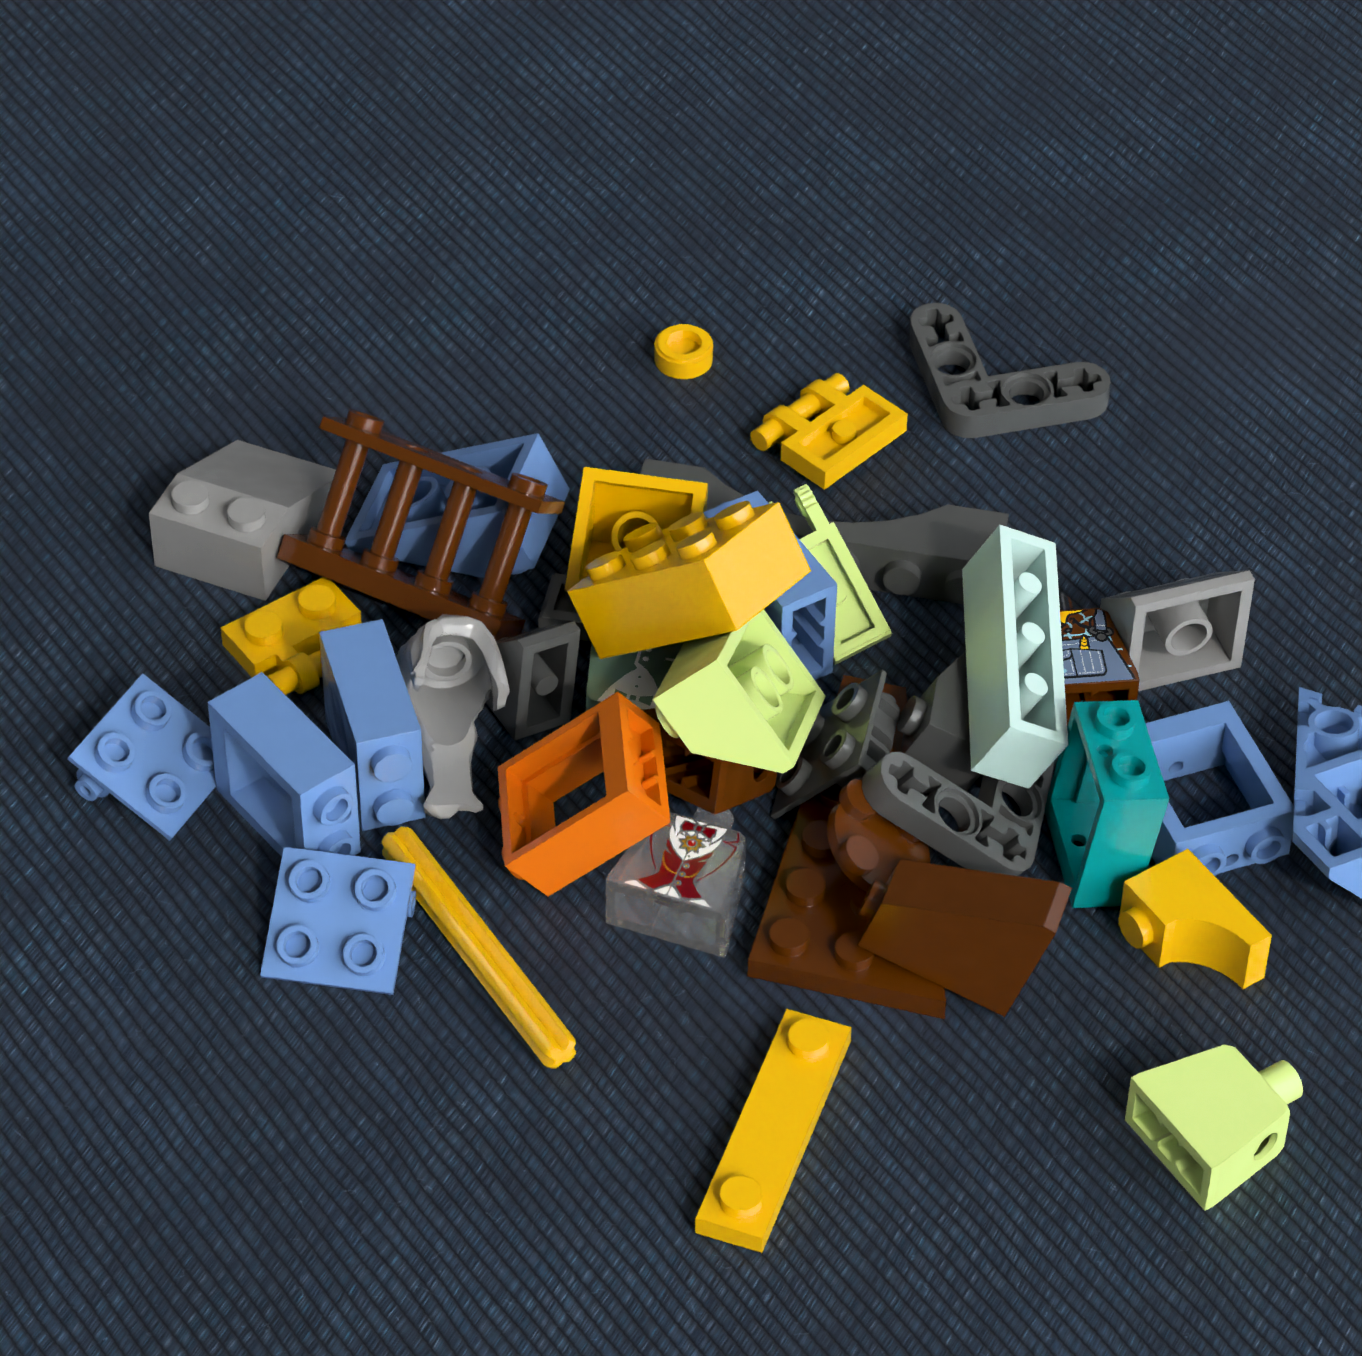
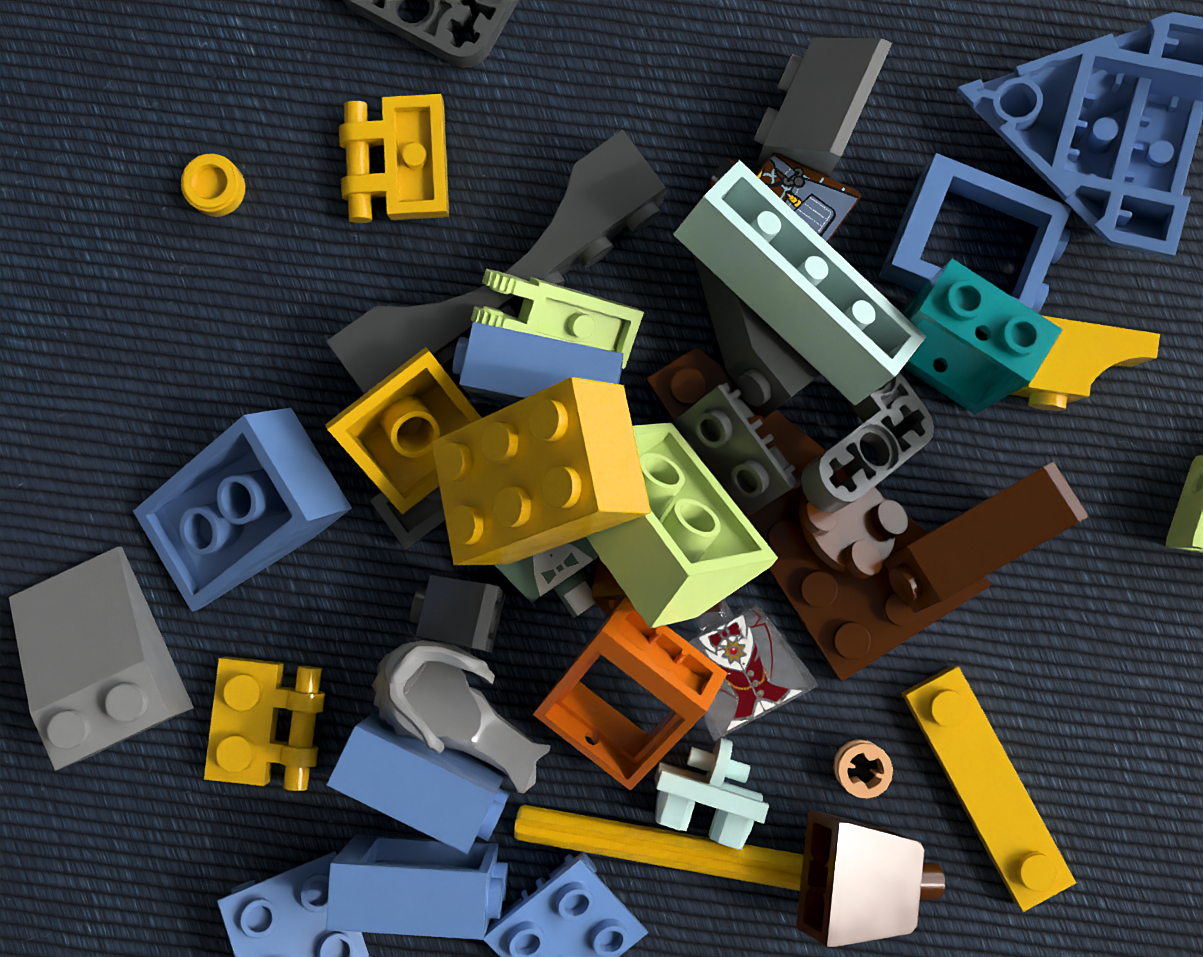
camera: 45 degrees left, 40 degrees up
(376, 568) = (273, 621): reddish brown fence -> none
(567, 927) = (734, 805): none -> light aqua hips
(601, 1067) = (861, 881): none -> torso
(686, 1013) = (854, 785): none -> light nougat bush

